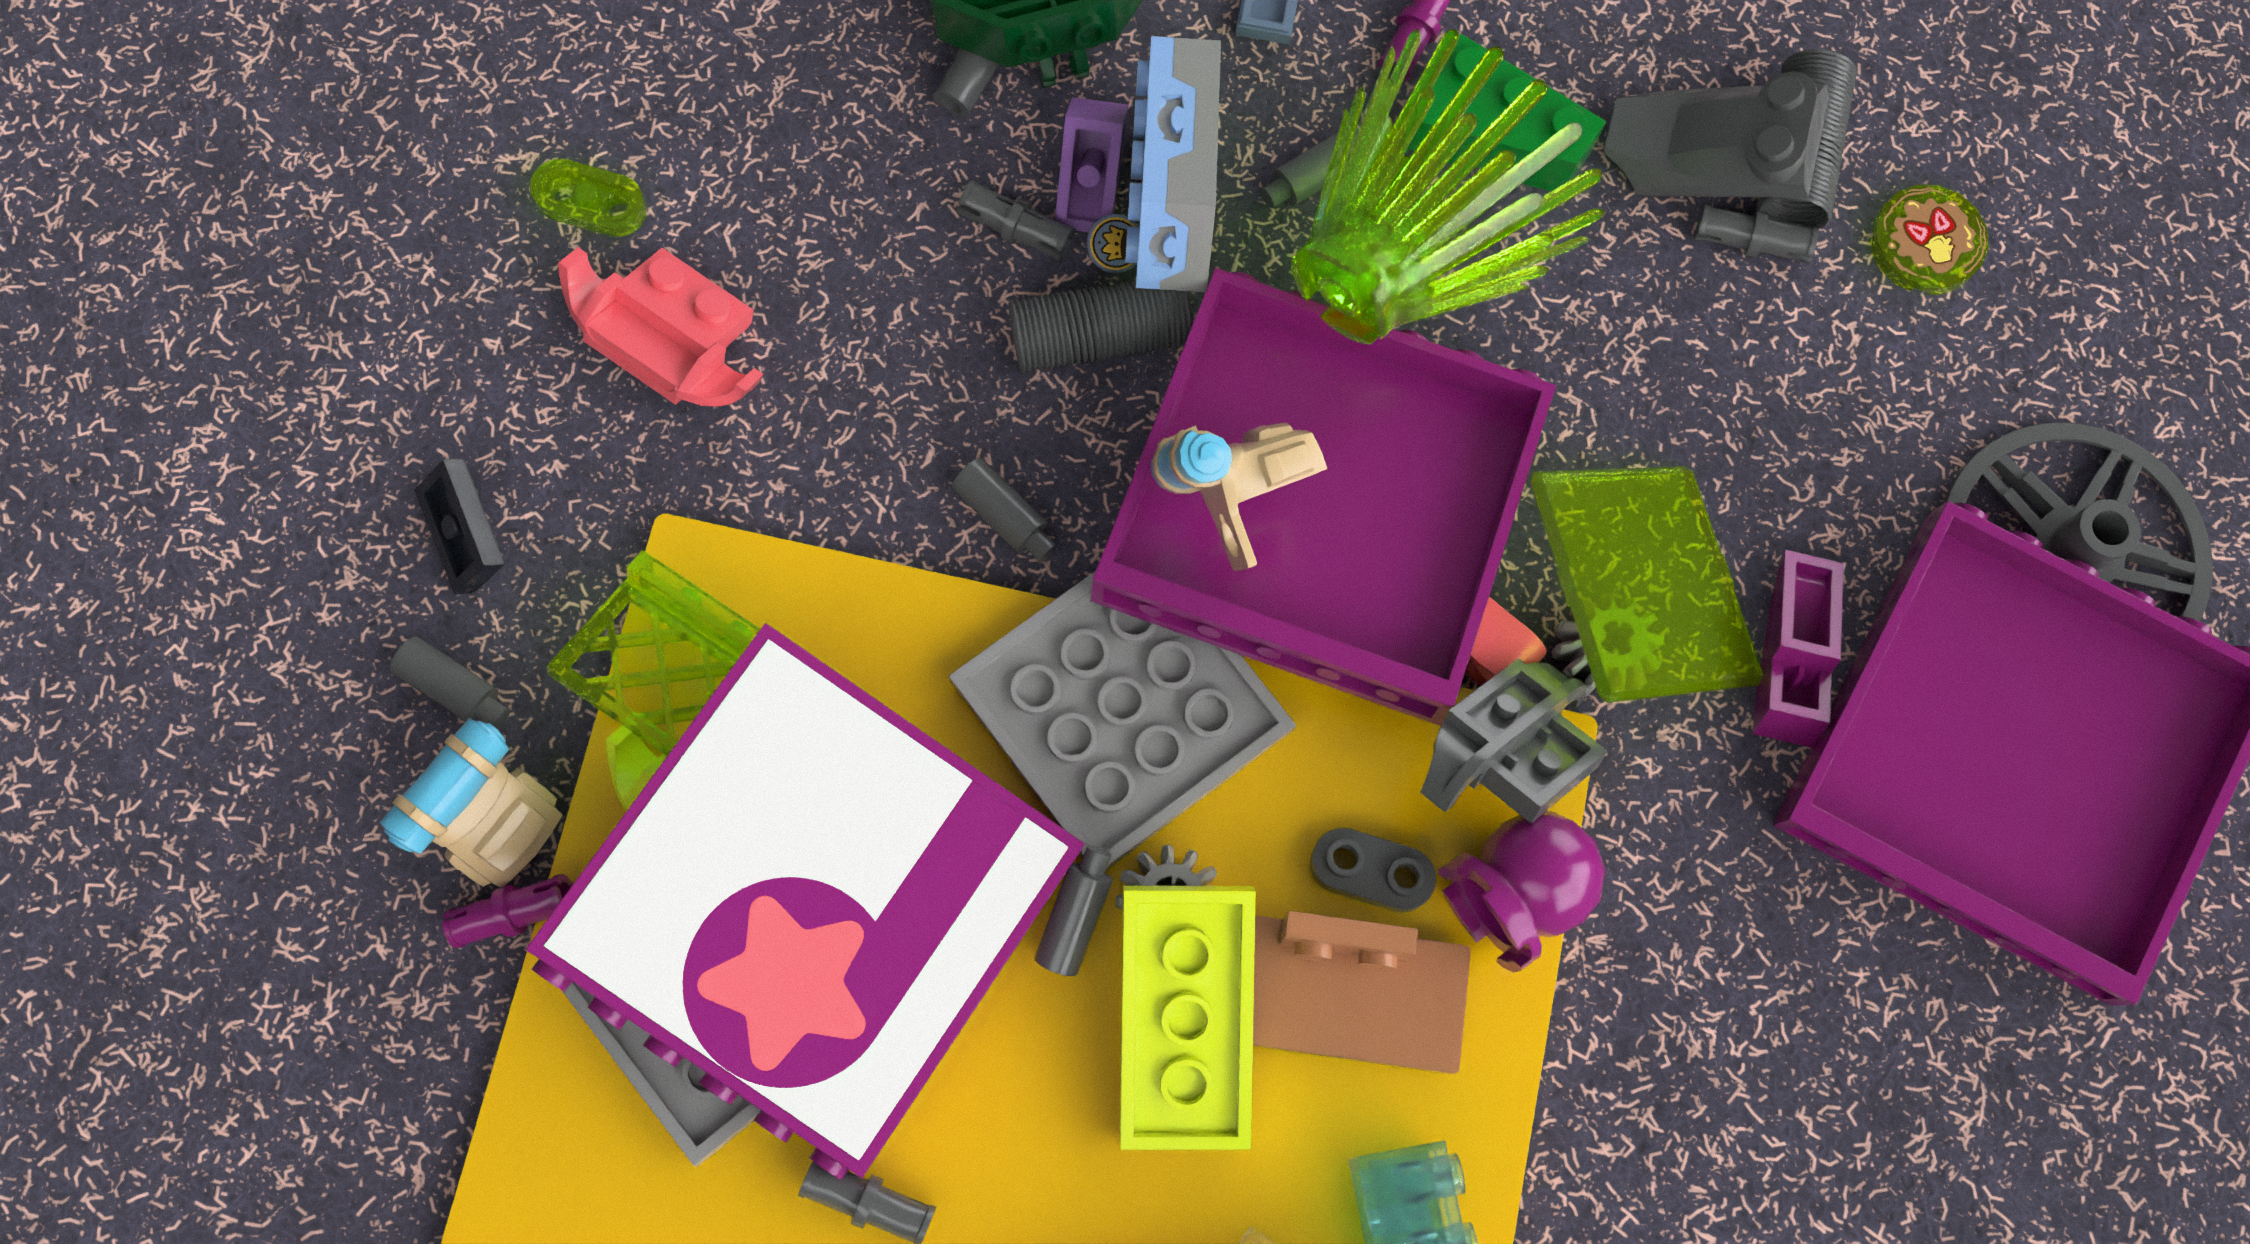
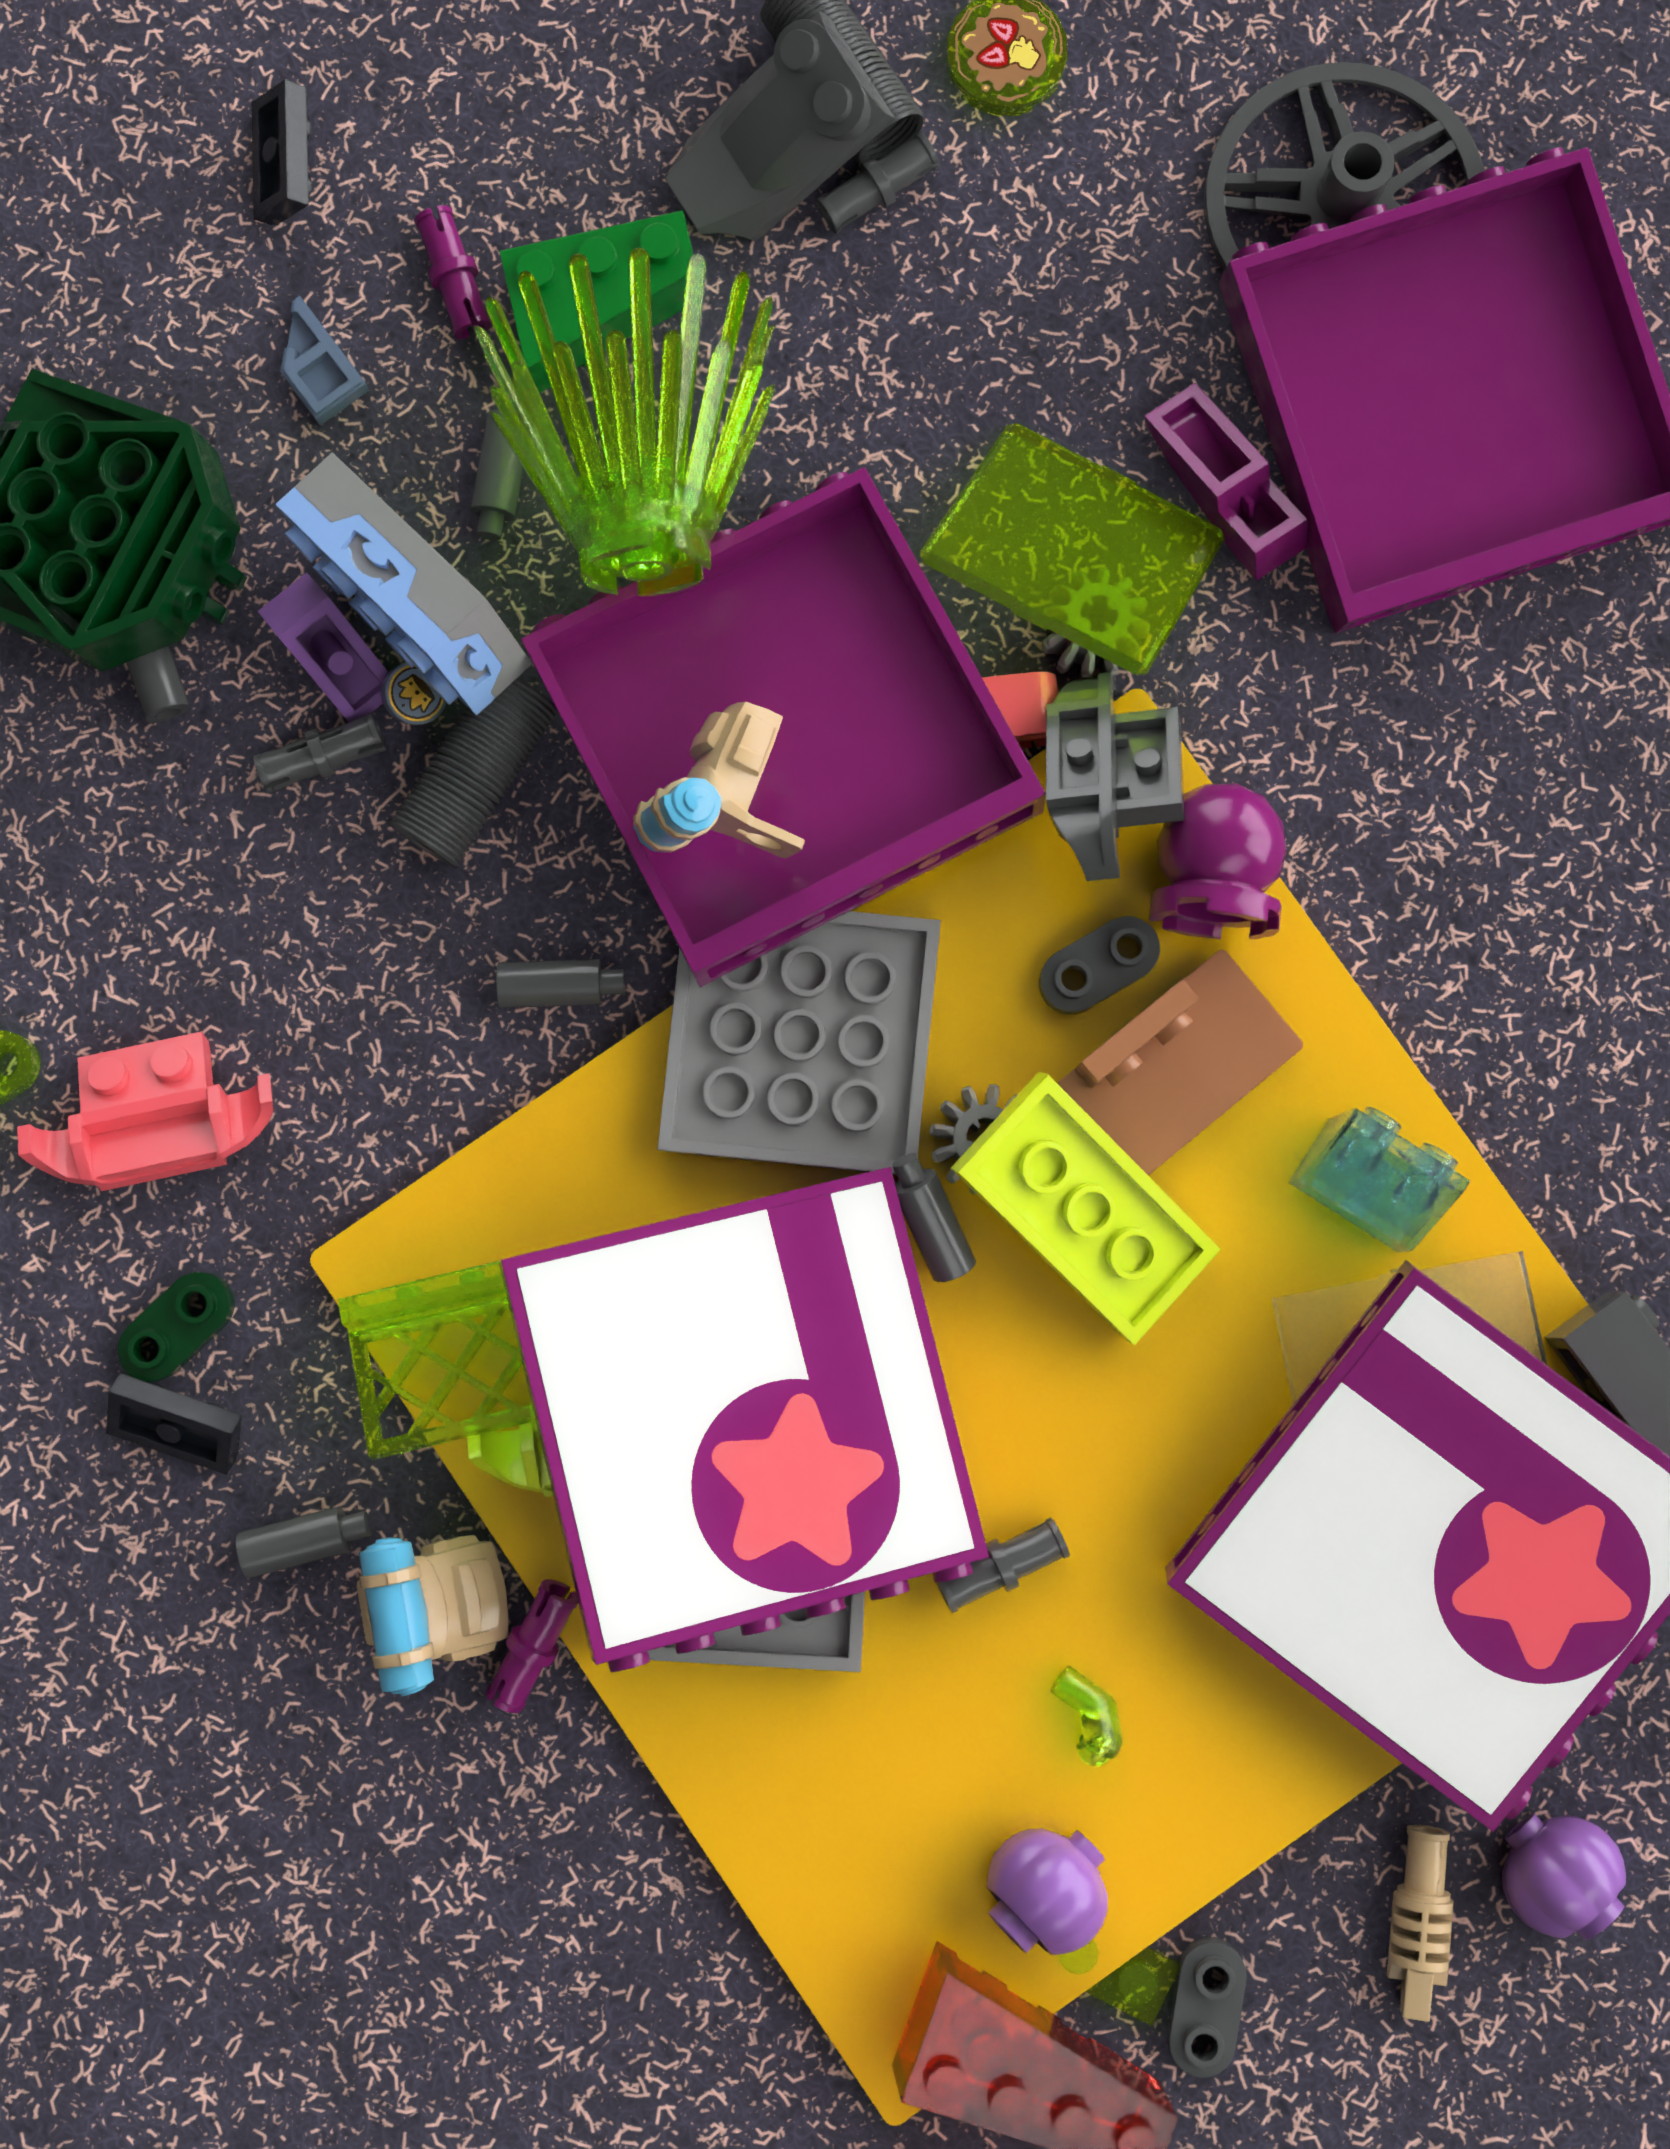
camera: 40 degrees left, 10 degrees up
(528, 471) = (175, 1328): none -> dark green plate

